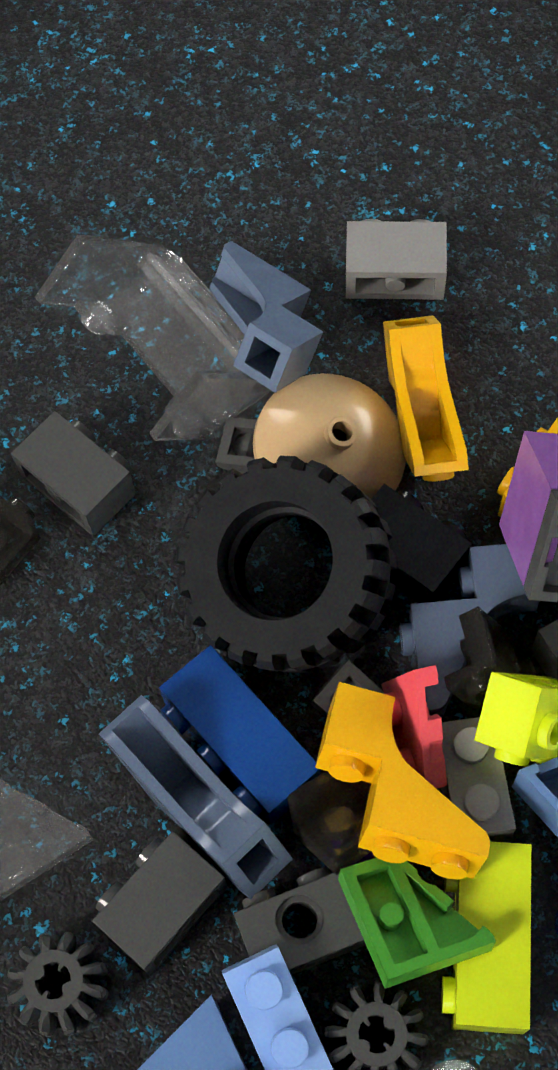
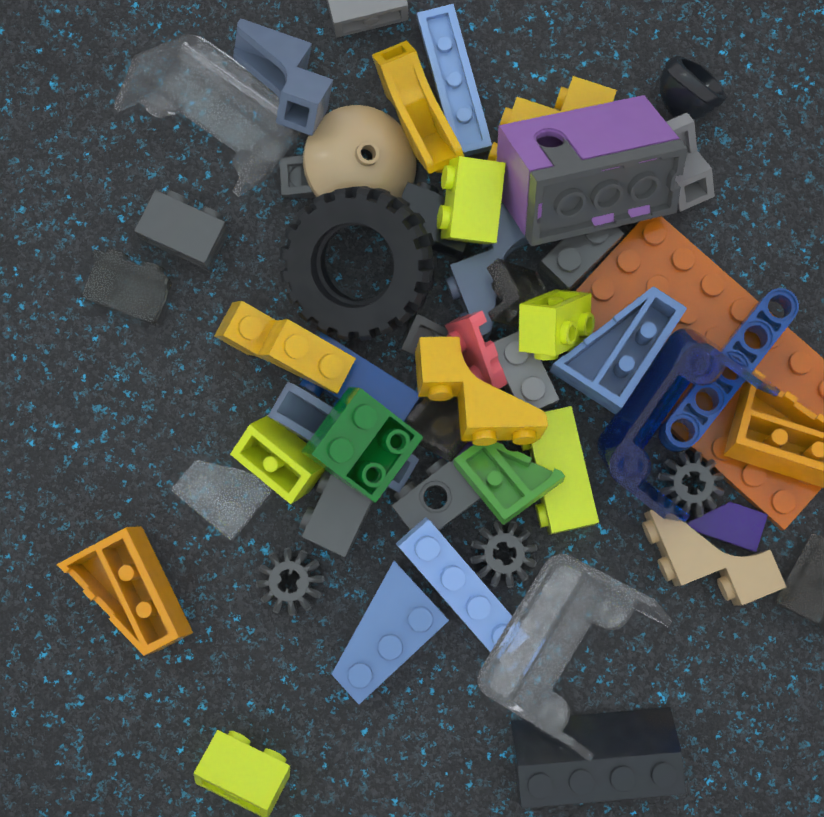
camera: 20 degrees left, 15 degrees up
(99, 802) = (277, 459): none -> neon yellow brick
(157, 651) = (285, 346): none -> yellow arch
(216, 809) = (362, 443): none -> green slope
(462, 522) = (471, 200): none -> neon yellow brick
(483, 380) = (454, 78): none -> light blue plate

